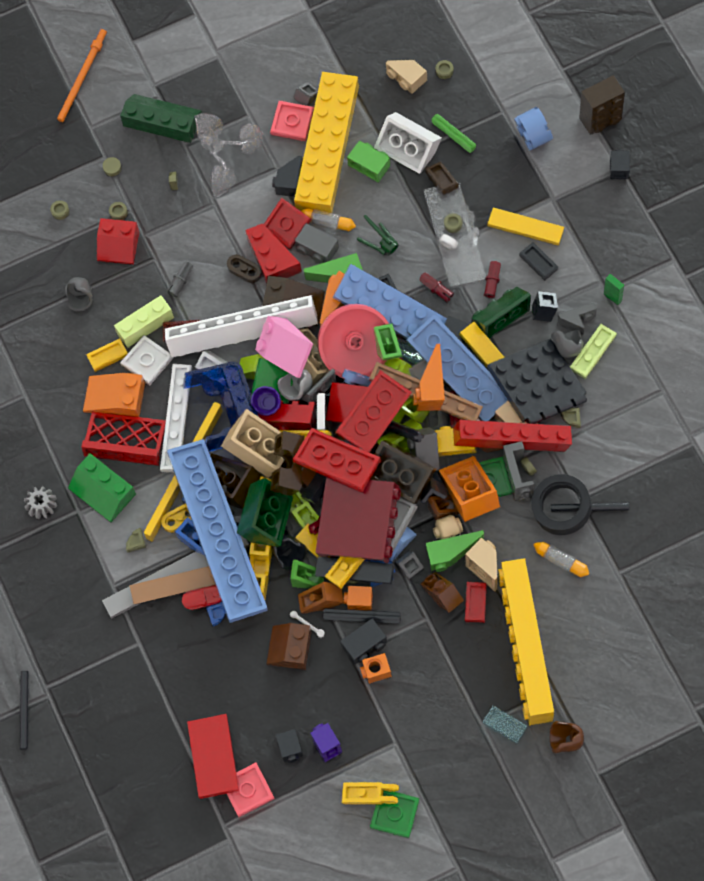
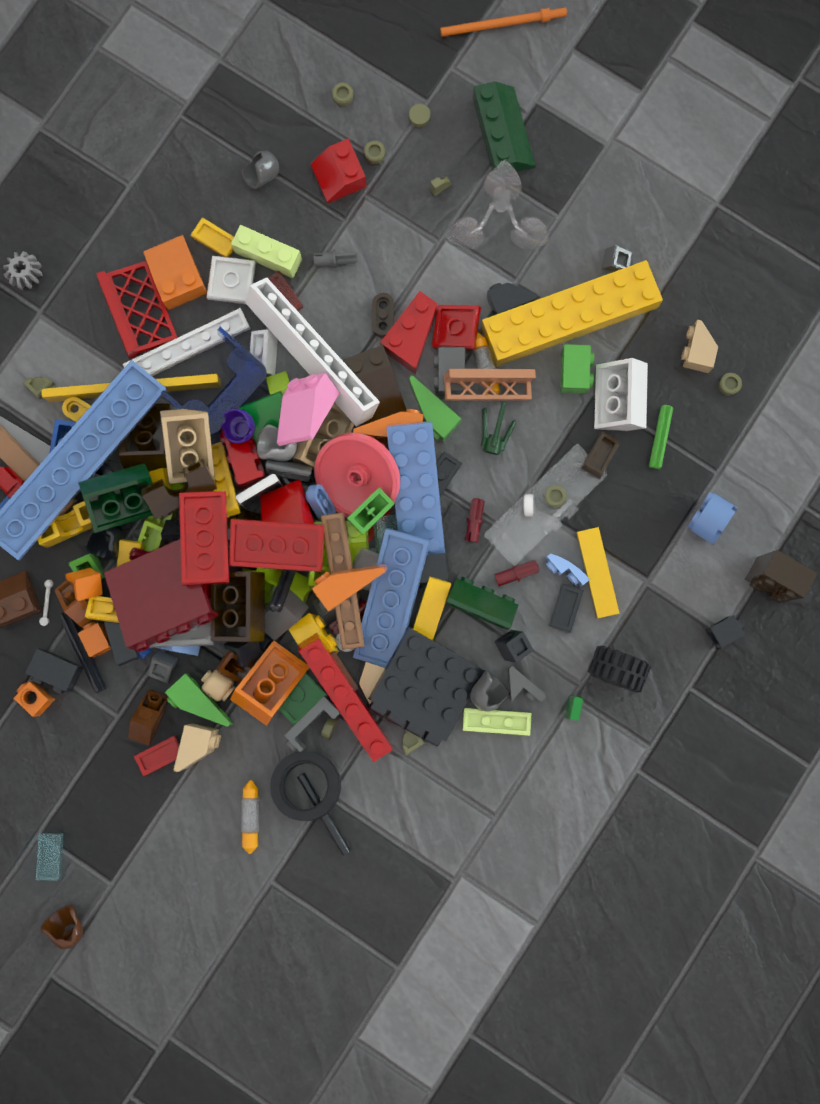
camera: 55 degrees right, 15 degrees up
(101, 488) = (72, 319): green slope -> none
(292, 121) = (577, 262): coral tile -> none
(315, 570) = (86, 583): none -> orange panel
(339, 216) = (491, 376): none -> nougat fence
(504, 247) = (559, 565): none -> light blue slope
(527, 643) = (132, 838): yellow brick -> none
(604, 243) = (619, 669): none -> black tyre

